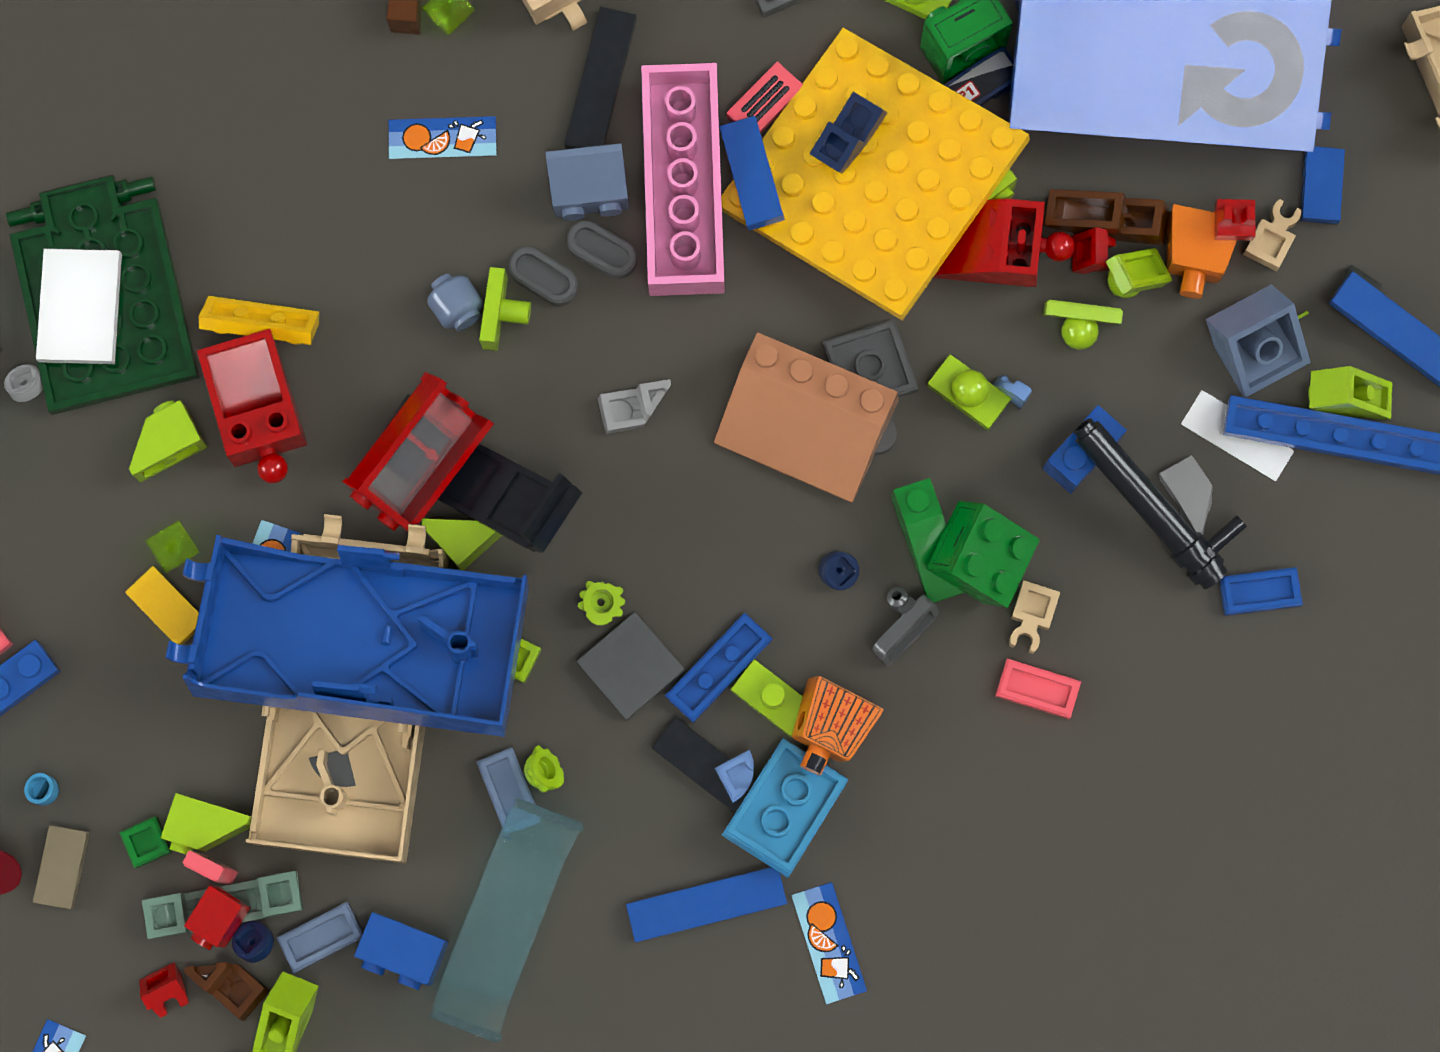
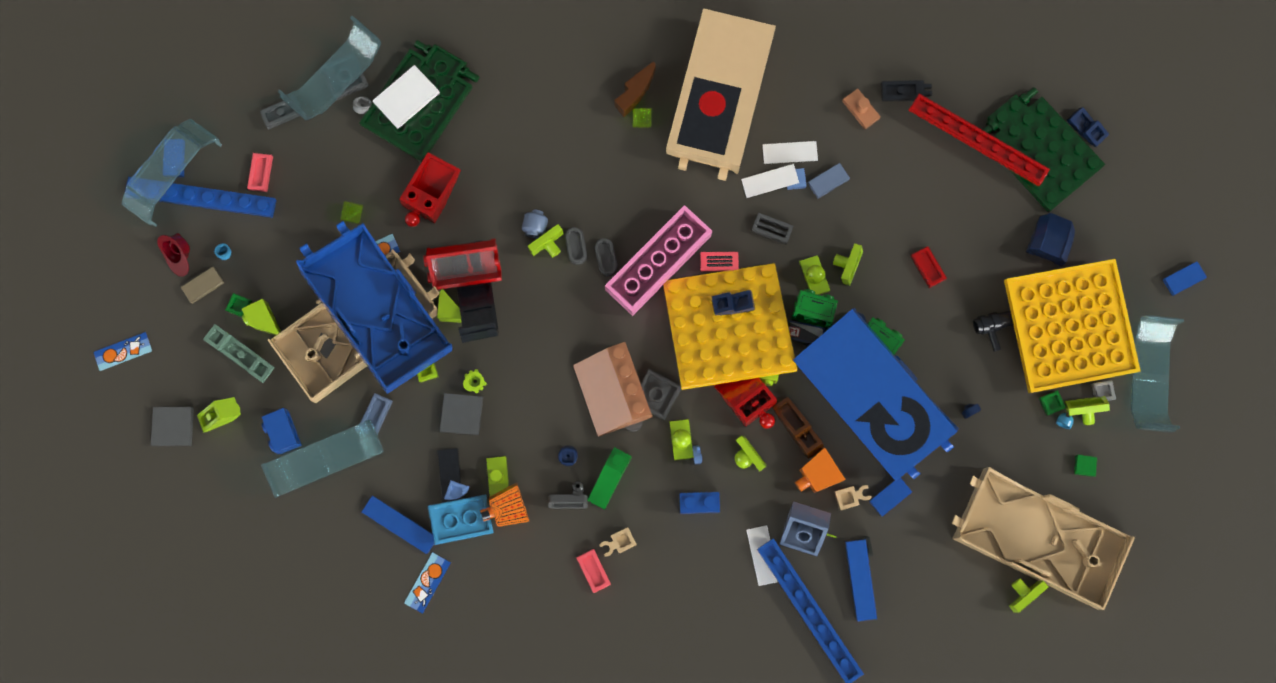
camera: 45 degrees right, 0 degrees up
(162, 986) = (191, 360): red tile -> none
(164, 605) = (327, 228): yellow tile -> none
(165, 440) = (387, 172): lime slope -> none
(210, 868) = (246, 336): coral tile -> none
(216, 918) = (231, 355): red brick -> none
(230, 986) = (214, 384): reddish brown slope -> none
(248, 317) = (460, 159): yellow plate -> none
(252, 941) = (236, 376): dark blue tile -> none
(320, 937) = (260, 398): sand blue tile -> none
(442, 137) = (593, 161): sticker -> none
(543, 770) = (393, 419): lime animal -> none
(587, 181) = (624, 228): sand blue slope -> none
(601, 79) = (668, 196): black tile -> none
(631, 407) = (557, 323): light grey slope -> none
(719, 667) = (491, 446): blue tile -> none
(752, 173) = (684, 282): blue tile -> none
(983, 553) = (621, 502): green brick -> none
(1091, 251) = (778, 434): red tile -> none
(1136, 272) = (786, 459): lime tile -> none
(1187, 547) = (698, 577): black cylinder -> none
(1190, 491) = (722, 557): light grey slope -> none
(1235, 219) = (840, 476): red tile -> none
(1260, 591) = (710, 619): blue tile -> none
(1350, 393) = (818, 583): lime slope -> none

